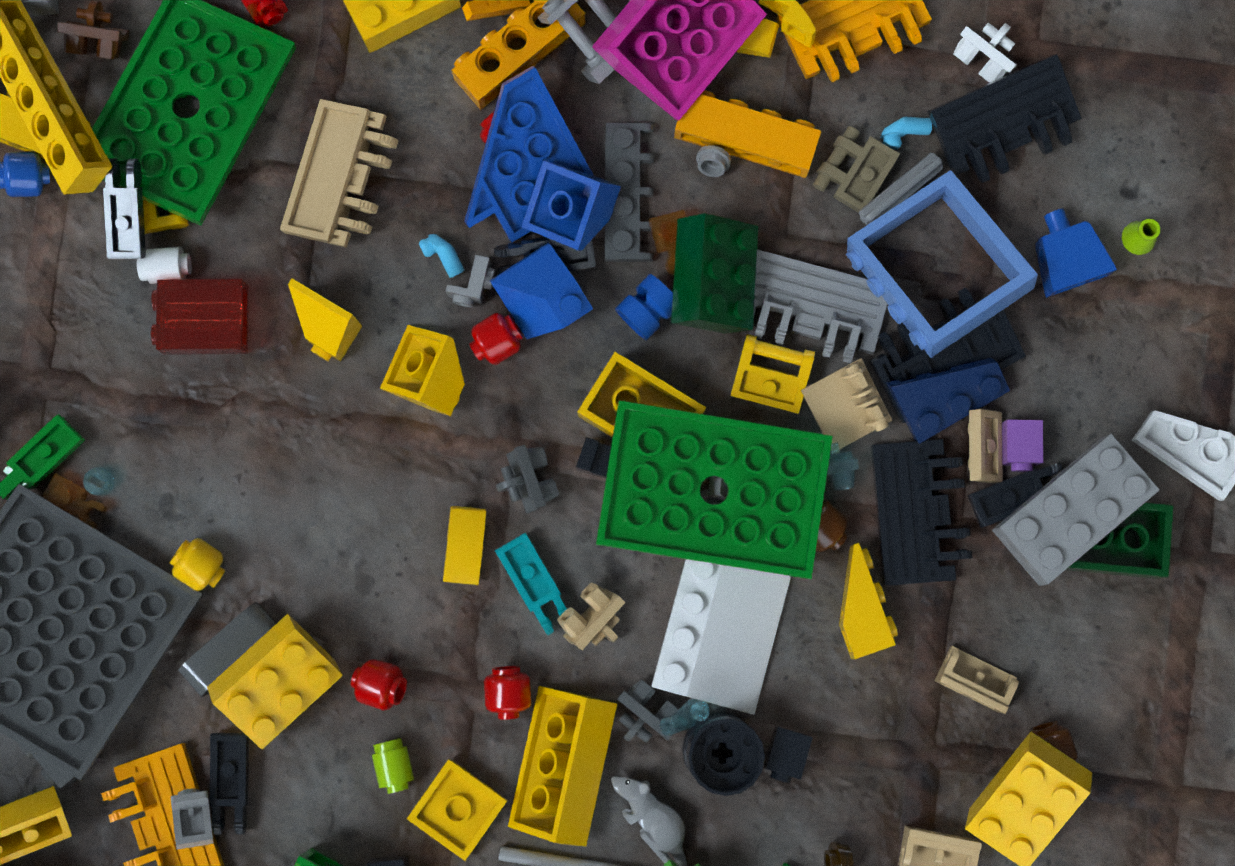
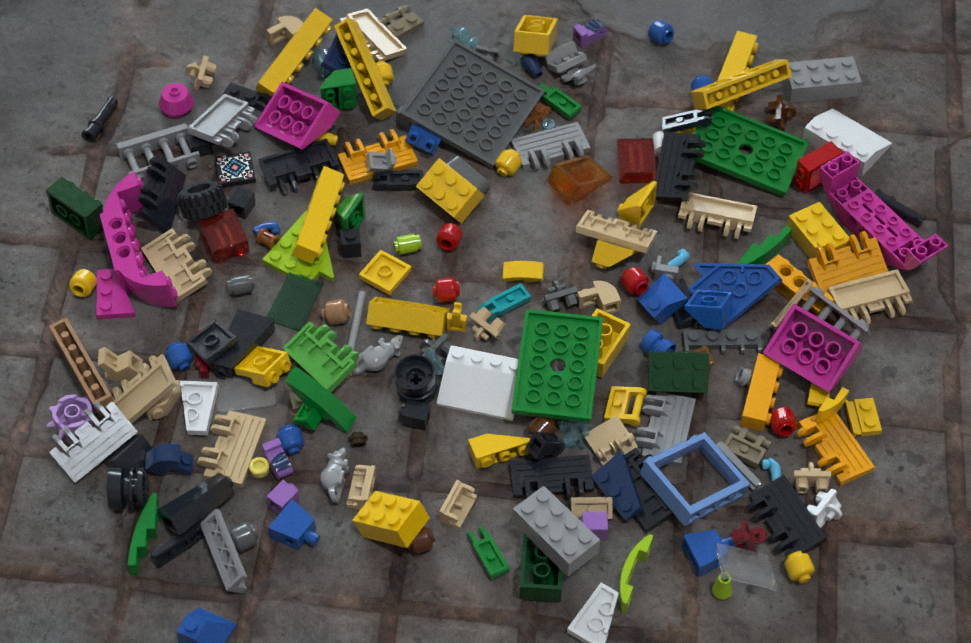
camera: 85 degrees right, 30 degrees down
(130, 738) = (423, 139): none -> blue hips
(147, 480) = (551, 145): none -> light grey hinge
(232, 241) = (676, 167): none -> black hinge
(240, 429) = (577, 178): none -> clear orange slope
(388, 365) = (616, 232): none -> tan hinge
(440, 108) = (769, 248): none -> green slope
(524, 397) = (602, 294): none -> tan brick
(578, 673) = (456, 320): none -> yellow plate
(580, 58) = (807, 284): none -> tan piece
(811, 101) = (783, 421): none -> red head
(865, 521) = (544, 444): none -> black leg
(932, 52) = (811, 478): none -> tan hips
(1059, 183) = (746, 539): none -> dark red hips
(1071, 365) = (639, 552): none -> lime slope
(1074, 628) = (488, 554): none -> green hinge
(1106, 105) = (799, 567): none -> yellow head
(1112, 194) = (745, 566): none -> clear piece

